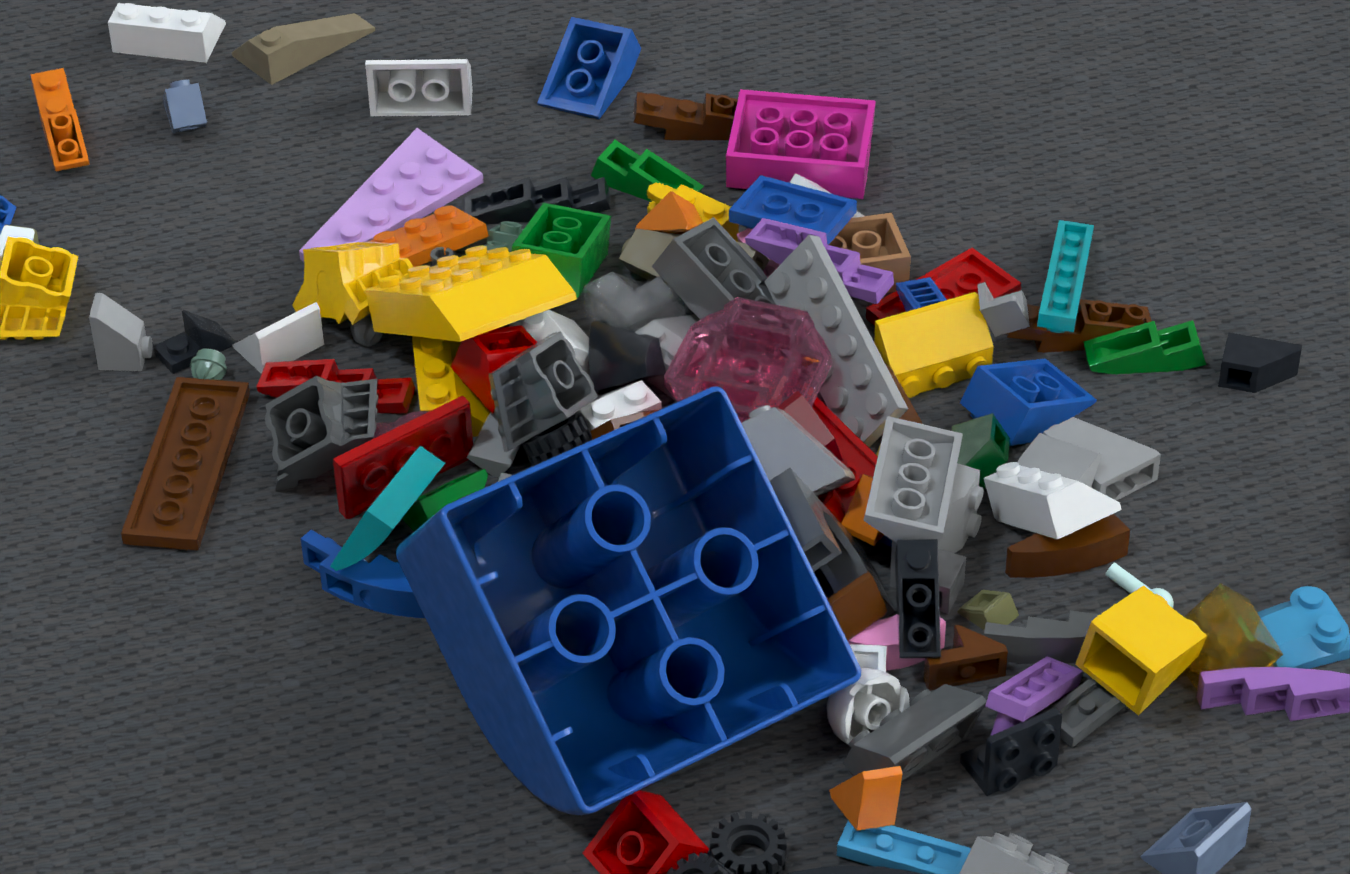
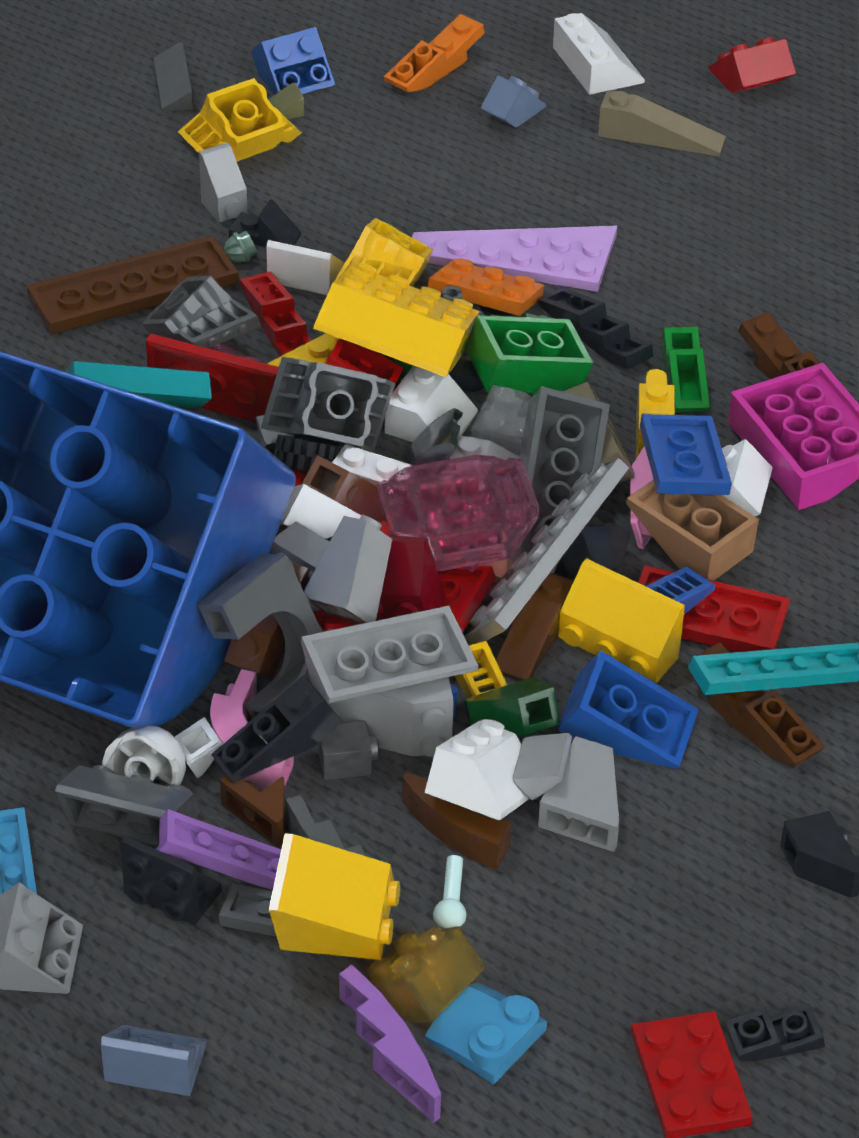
camera: 55 degrees right, 0 degrees up
(419, 87) = (657, 202): white slope -> none
(590, 68) = (783, 281): blue slope -> none
(671, 215) = (622, 395): orange slope -> none
(780, 239) = (637, 498): medium lavender slope -> none
(858, 605) = (223, 694): reddish brown slope -> none
(869, 797) = (31, 805): orange slope -> none
(989, 607) = (344, 804): olive slope -> none
(1005, 312) = (689, 634): light grey panel -> none
(1146, 350) = (771, 772): green slope -> none

